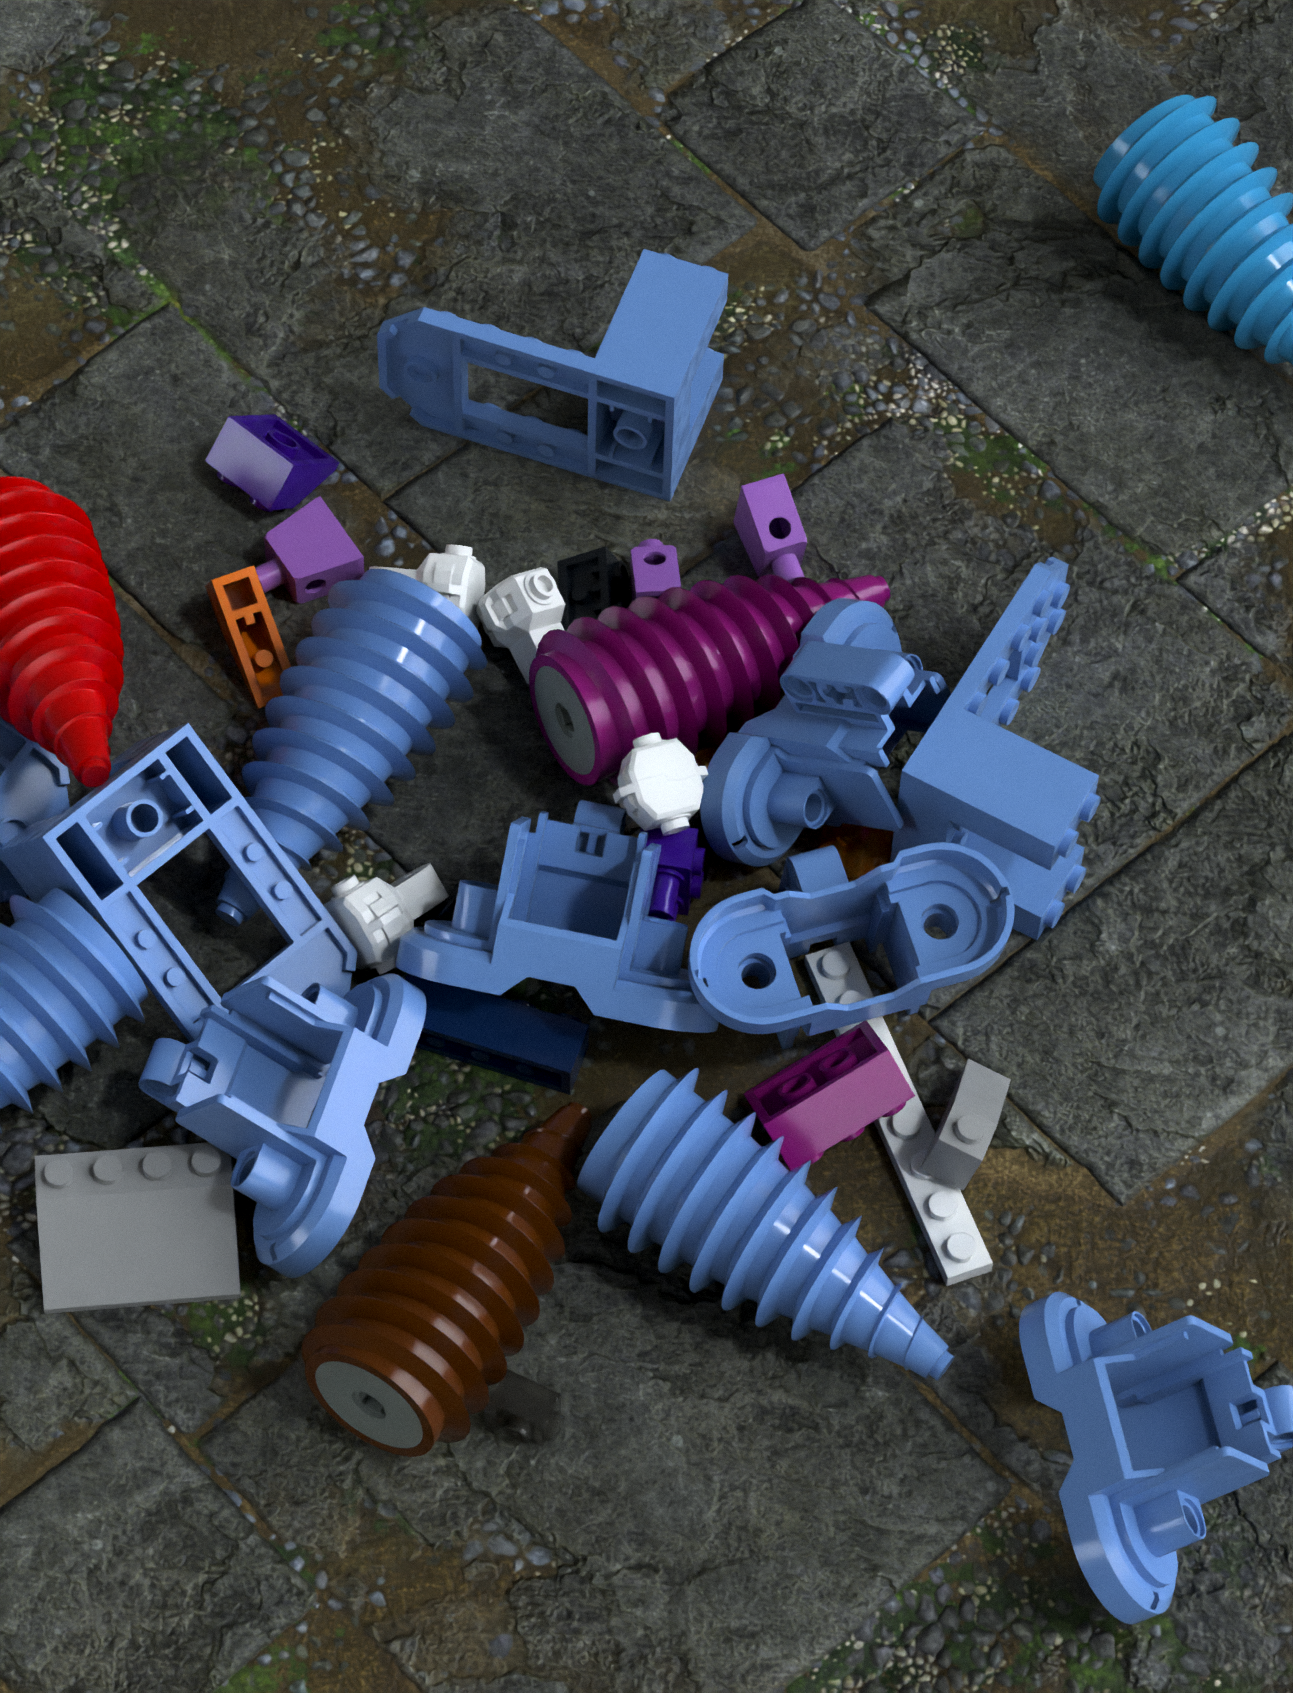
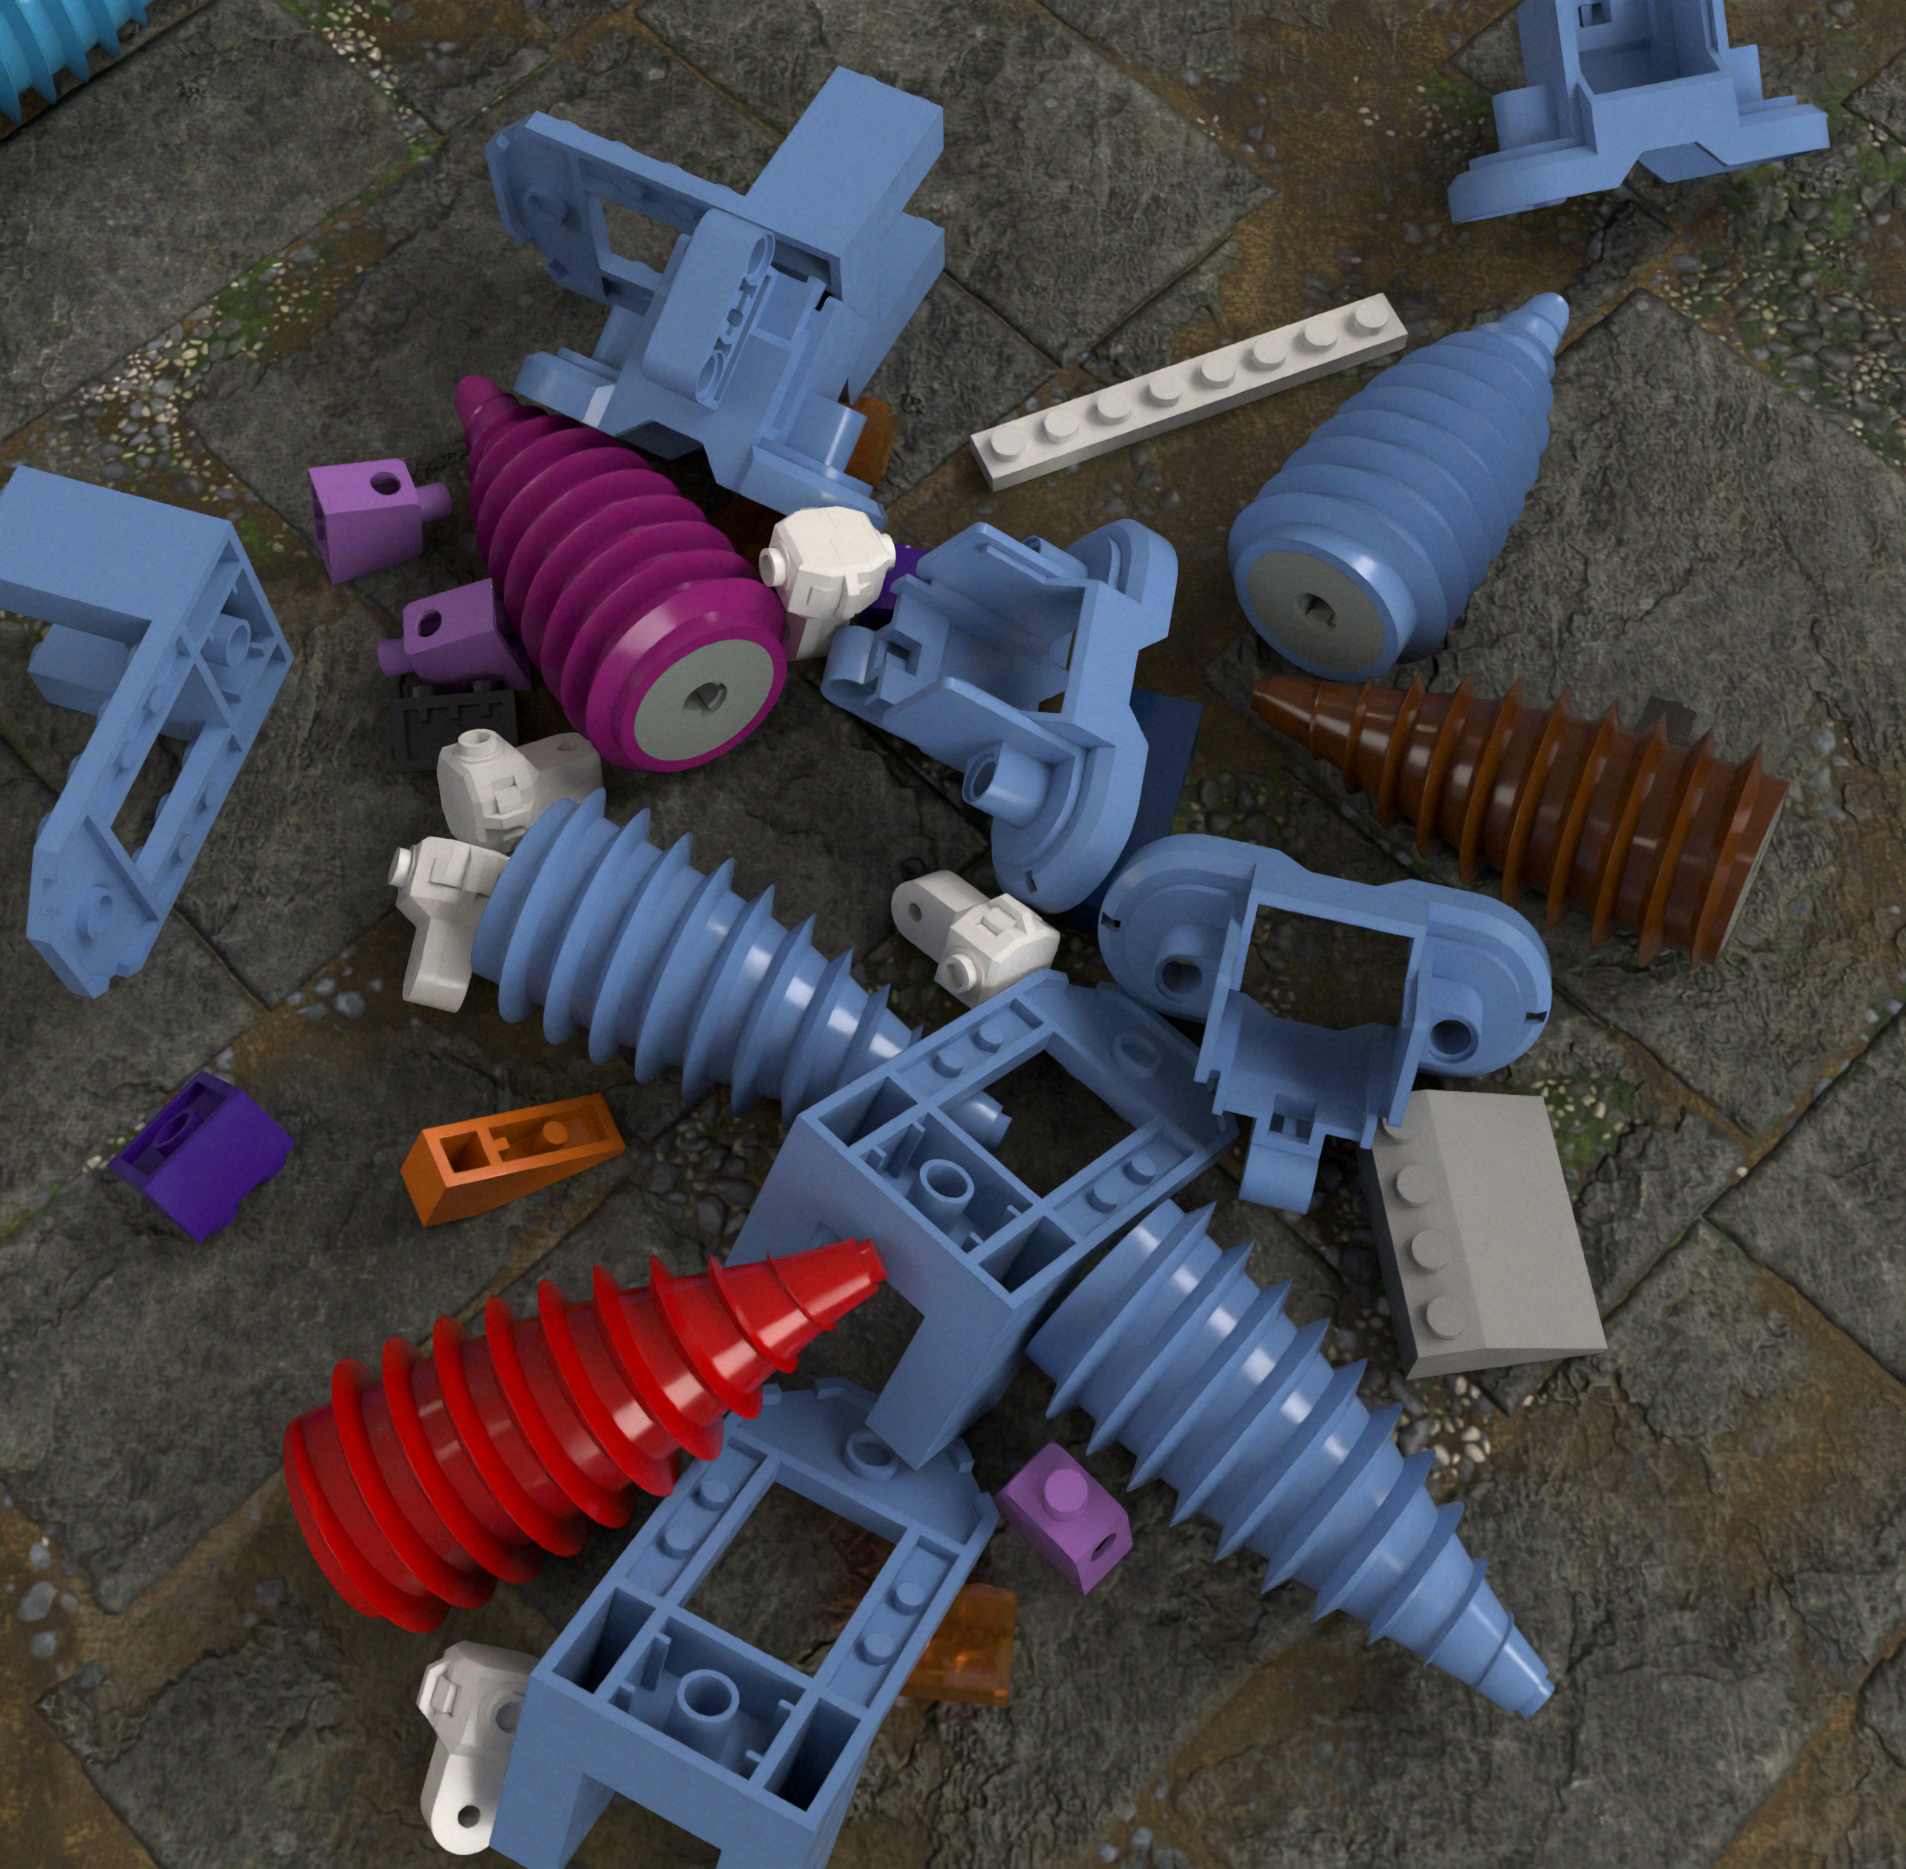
camera: 90 degrees left, 5 degrees up
(309, 554) = (370, 1085): medium lavender torso -> none
(815, 902) = (1025, 288): medium blue piece -> none
(830, 1095) = (1193, 434): magenta slope -> none
(967, 1125) = (1229, 299): light grey slope -> none

